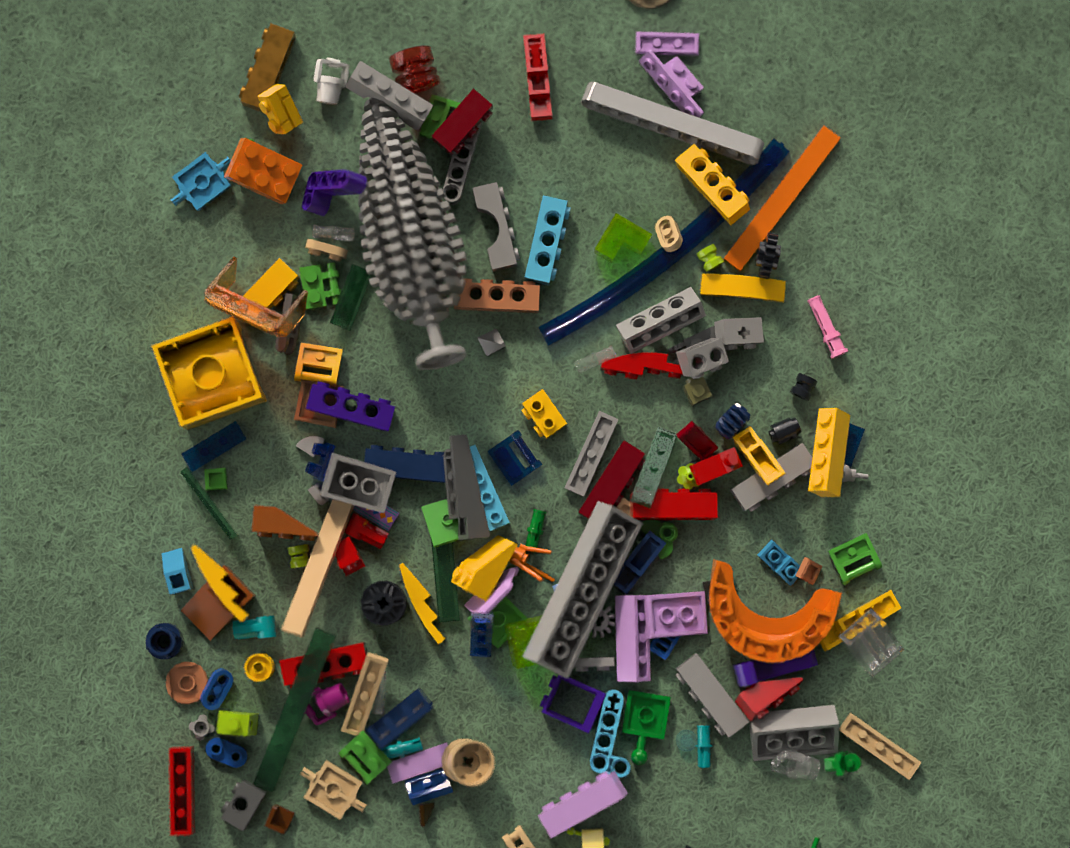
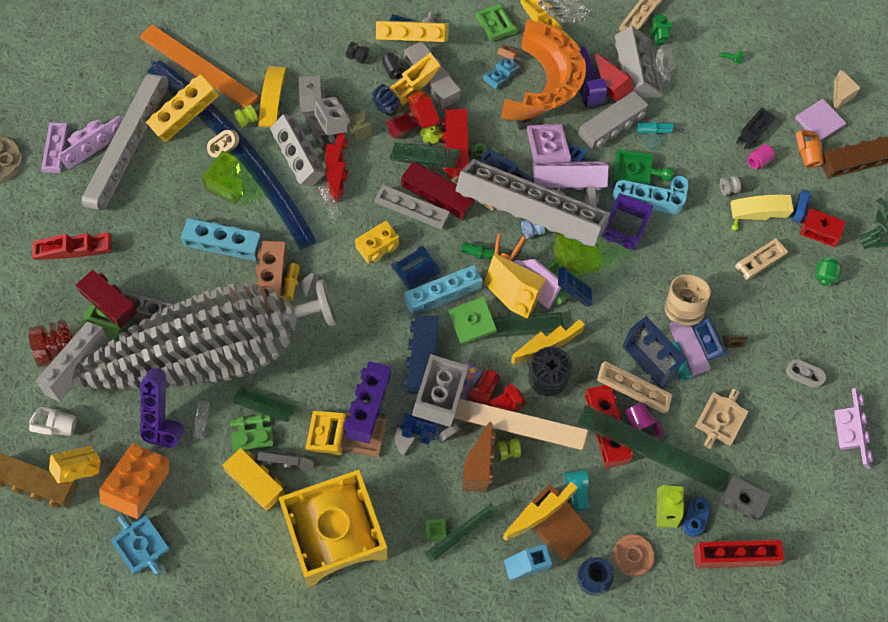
camera: 90 degrees left, 20 degrees down
(195, 727) = (675, 534): light grey plate -> none
(214, 446) = (404, 531): tile -> none
(216, 688) = (638, 524): blue plate -> none
(221, 298) = (273, 484): clear orange windscreen -> none
(259, 667) = (615, 482): yellow wheel -> none
(279, 819) = (753, 466): reddish brown panel -> none
(335, 253) = (214, 432): tan plate -> none
(368, 753) = (686, 385): bright green plate -> none
(463, 490) = (446, 300): dark grey wedge -> none
(489, 201) = (183, 283): light grey arch -> none
(496, 319) = (290, 281): none -> yellow axle
(582, 804) = (713, 211): lavender brick -> none
(623, 829) = (730, 185): none -> light grey wheel
(768, 255) = (246, 69): black gear -> none
(831, 336) = (316, 33): bright pink pin -> none

